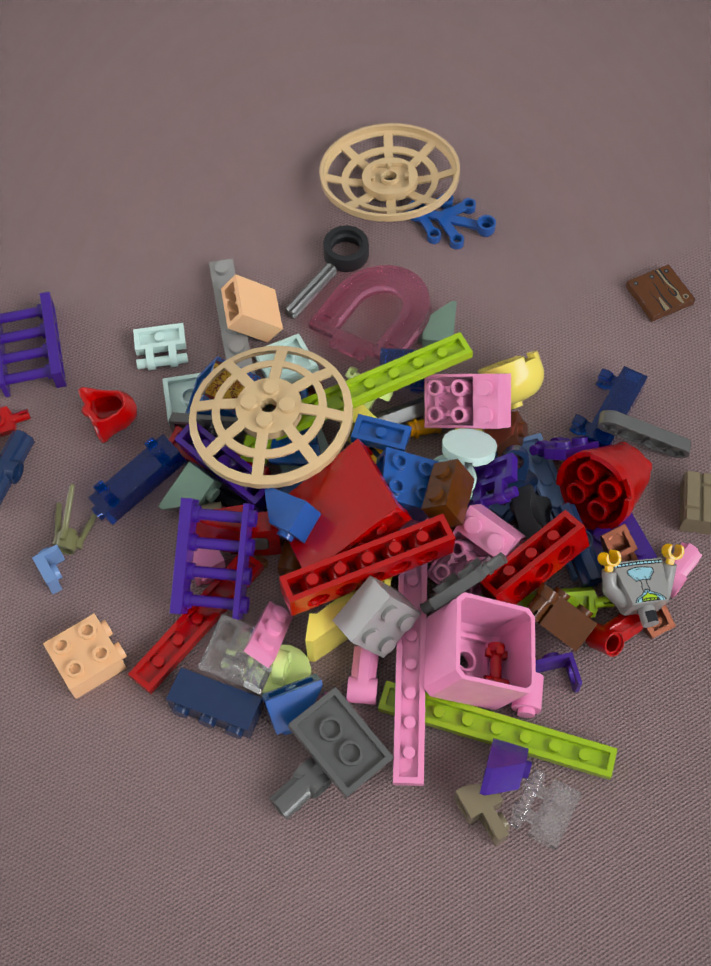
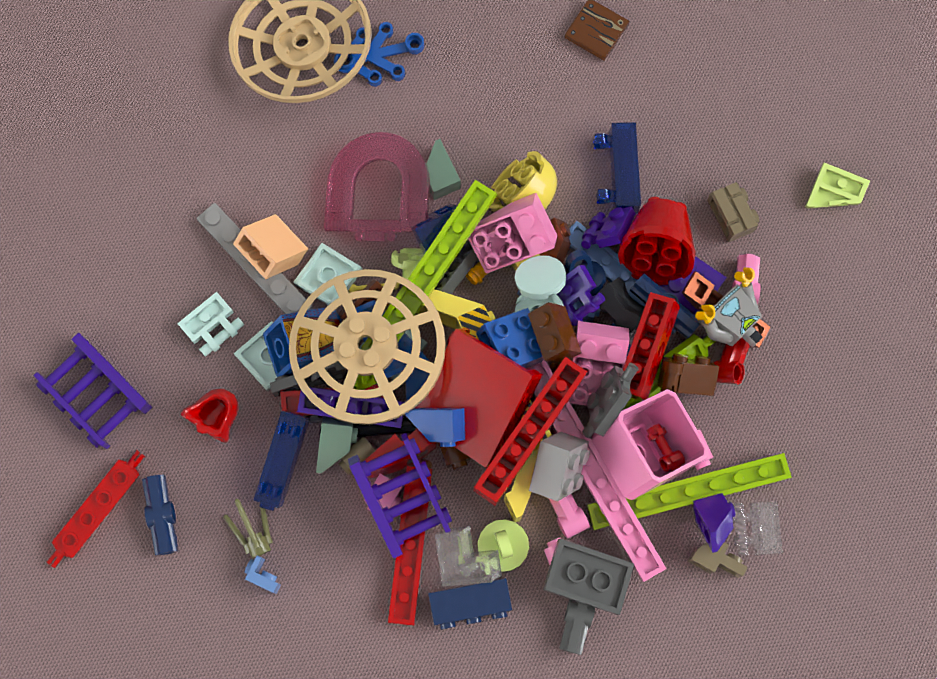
camera: 35 degrees left, 15 degrees up
(86, 655) = (343, 628): light nougat brick -> none
(268, 634) = (479, 526): bright pink plate -> none
(290, 701) = (529, 566): blue slope -> none
(310, 291) = (304, 194): dark grey axle -> none
(346, 234) = (308, 118): black tyre -> none
(380, 433) = (466, 309): blue plate -> none
(554, 661) = (712, 406): dark purple bracket -> none
(644, 434) = (662, 178): dark grey beam -> none

